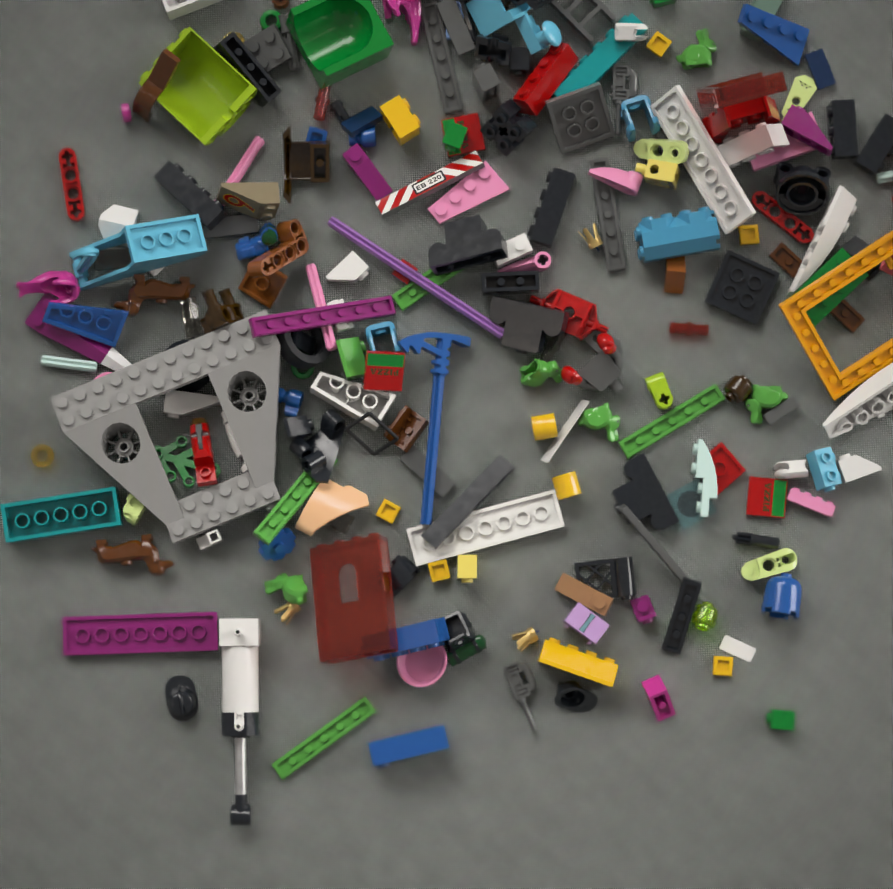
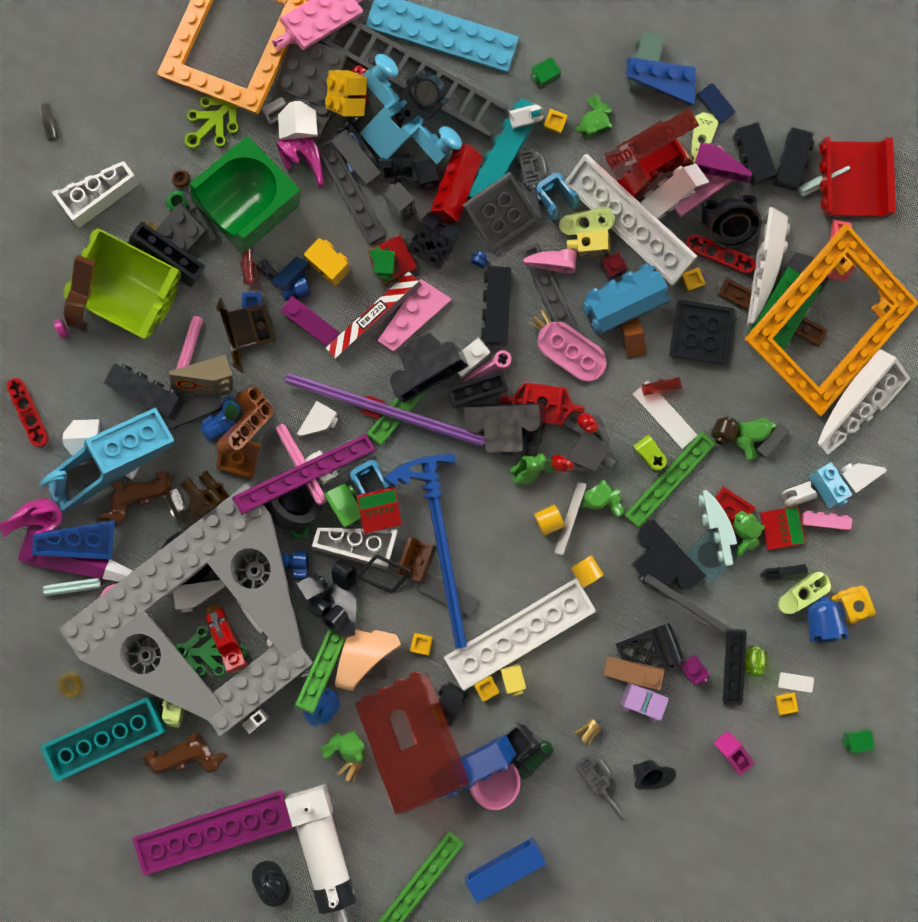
camera: 10 degrees left, 0 degrees up
(467, 501) = (495, 614): black tile -> none
(547, 157) = (479, 259): none -> blue plate
(577, 662) = (647, 742): yellow slope -> none
(611, 271) = (572, 351): none -> bright pink tile
(675, 200) = (613, 266): none -> dark red brick
(685, 360) = (666, 417): none -> white sticker
(733, 490) = (749, 530): none -> bright green animal
(807, 580) = (848, 598): none -> yellow piece

